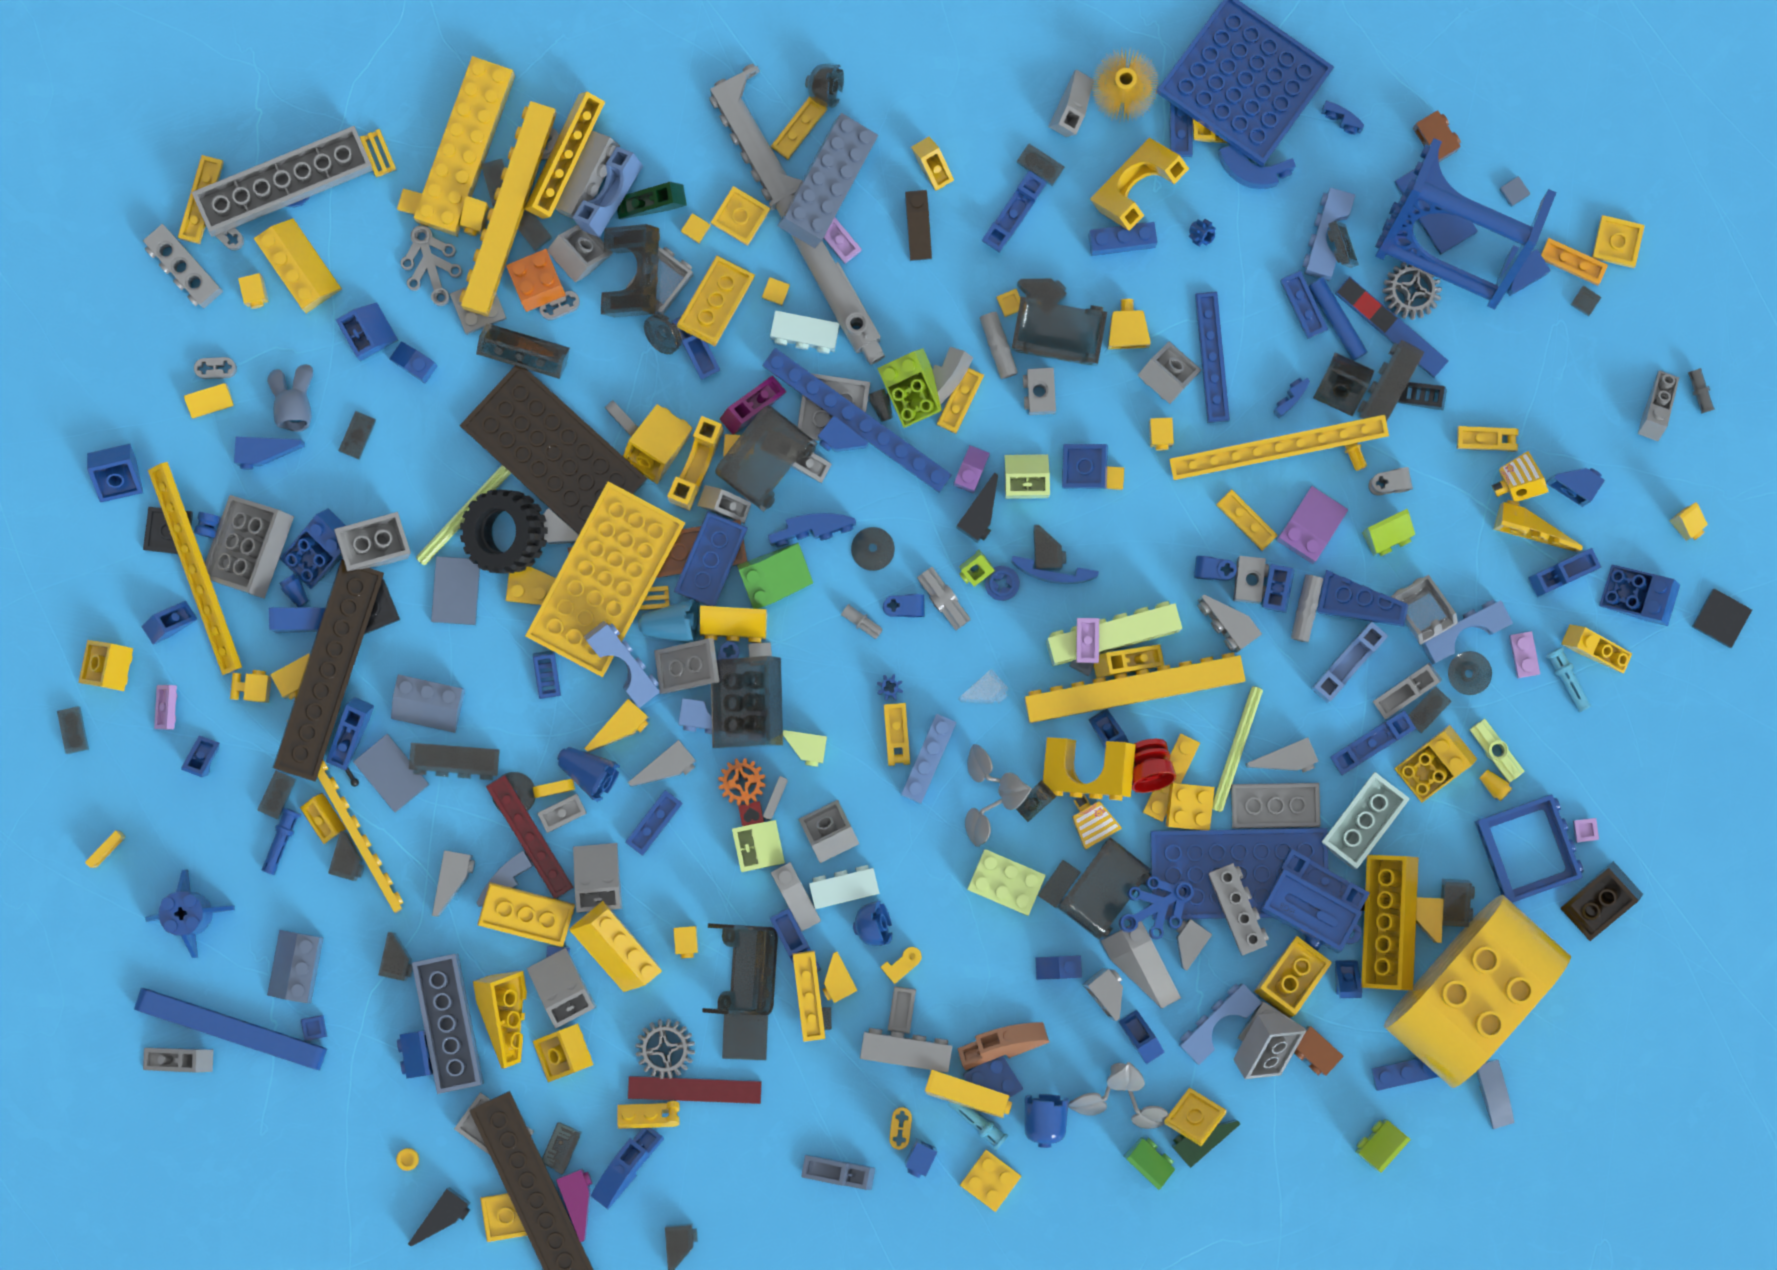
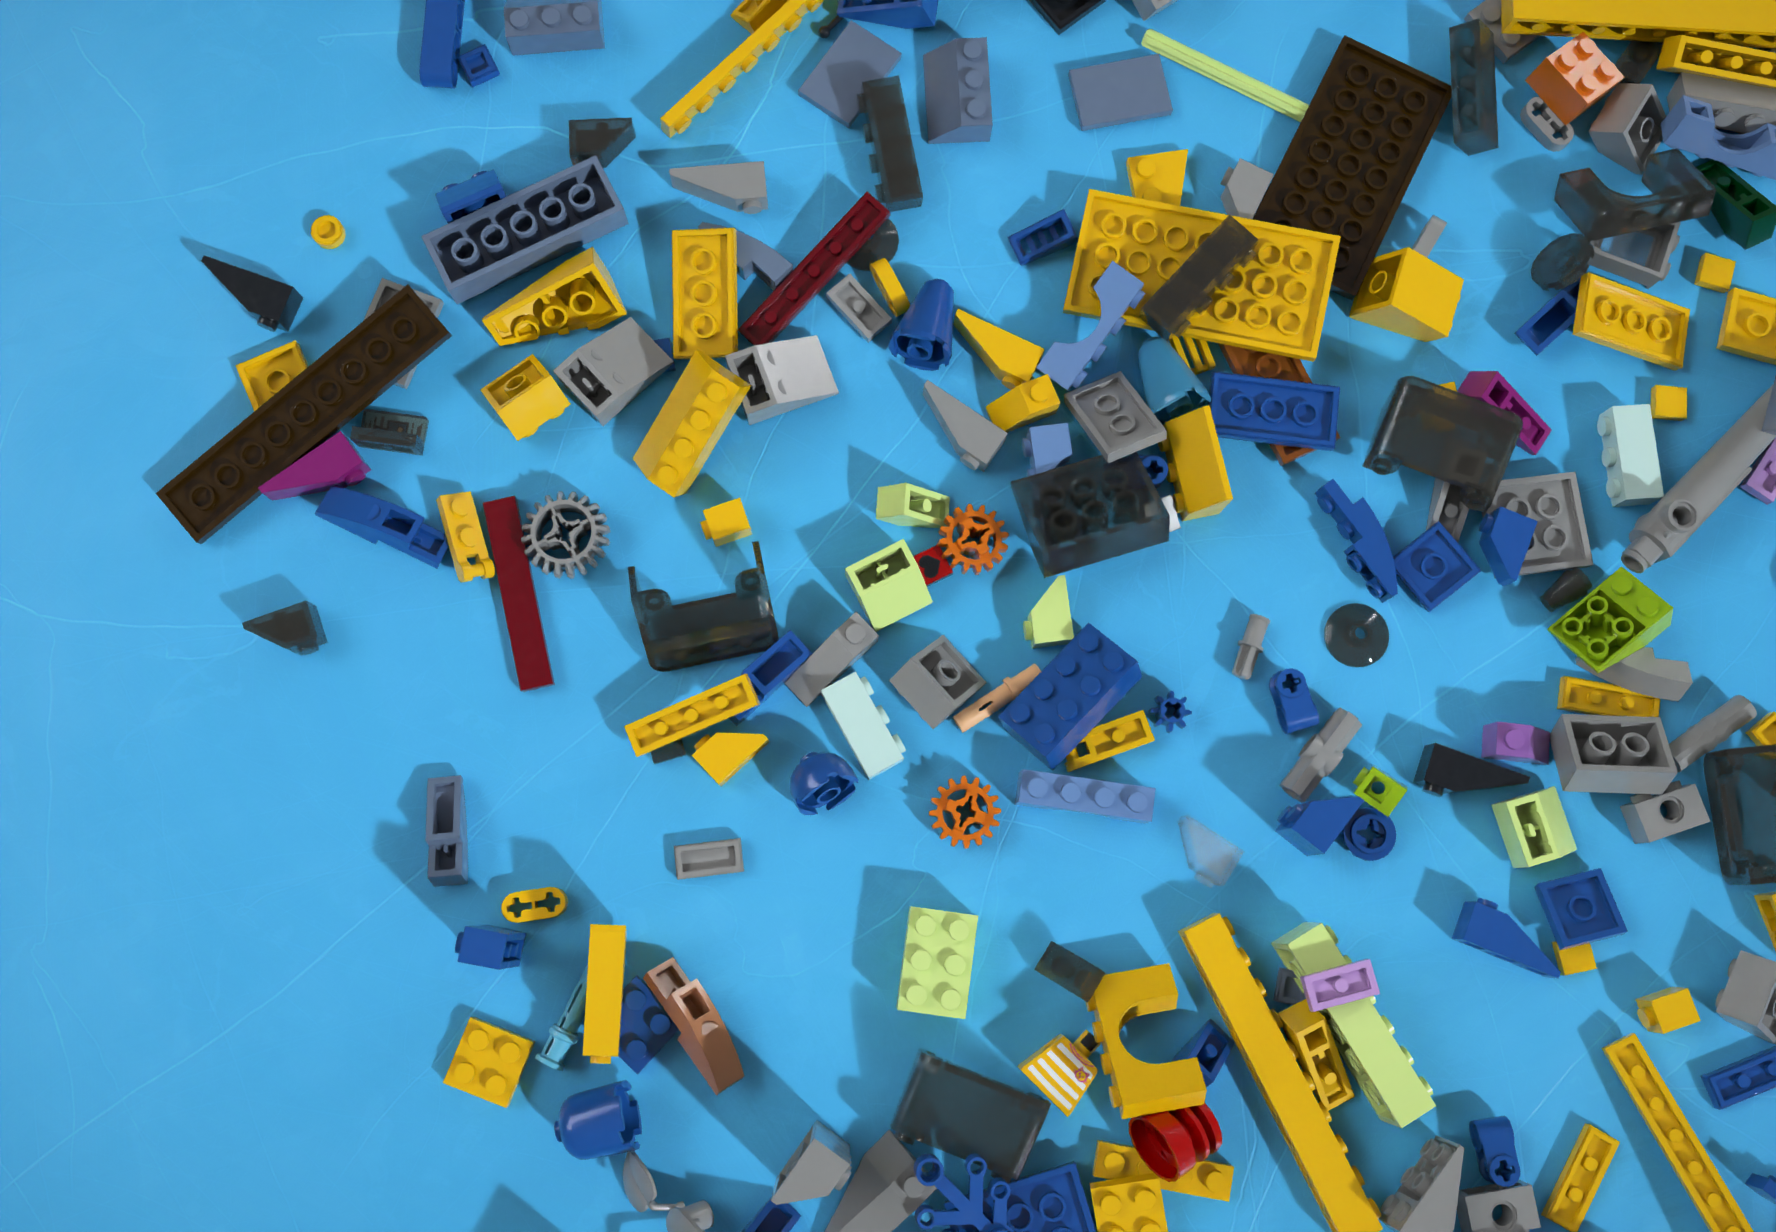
camera: 70 degrees right, 5 degrees down
(346, 859) = (715, 41): clear smoke slope -> none
(478, 531) = (1219, 91): black tyre -> none
(611, 584) = (1199, 278): none -> clear smoke brick
(654, 822) = (881, 434): blue plate -> none
(660, 723) = (1024, 404): none -> yellow slope
(687, 485) = (1361, 349): yellow arch -> none
(709, 815) = (911, 506): none -> yellowish green slope
(724, 503) = (1356, 410): light grey slope -> none
(745, 1037) = (610, 644): clear smoke tile -> none
(775, 575) = (1279, 505): bright green slope -> none
(775, 798) = (964, 592): light grey tile -> none
(842, 485) = (1434, 566): none -> blue tile
(850, 794) = (998, 698): none -> light nougat pin
(857, 420) = (1525, 595): blue plate -> none
(862, 749) = (1070, 696): none -> blue brick
(906, 1051) = (647, 880): light grey brick -> none
(909, 959) = (784, 849): yellow leg -> none
(911, 846) = (979, 817): none -> orange gear
(985, 617) = (1316, 824): none -> blue slope
(994, 415) = (1612, 754): none -> light grey brick
(1011, 790) = (1075, 932): light grey plant -> none
(1026, 566) = (1419, 950): blue slope -> none
(1047, 551) = (1439, 887): clear smoke slope -> none
(1058, 967) = (832, 1078): blue slope -> none
(1059, 883) = (956, 1042): clear smoke tile -> none
(1086, 524) = (1498, 935): none -> blue slope

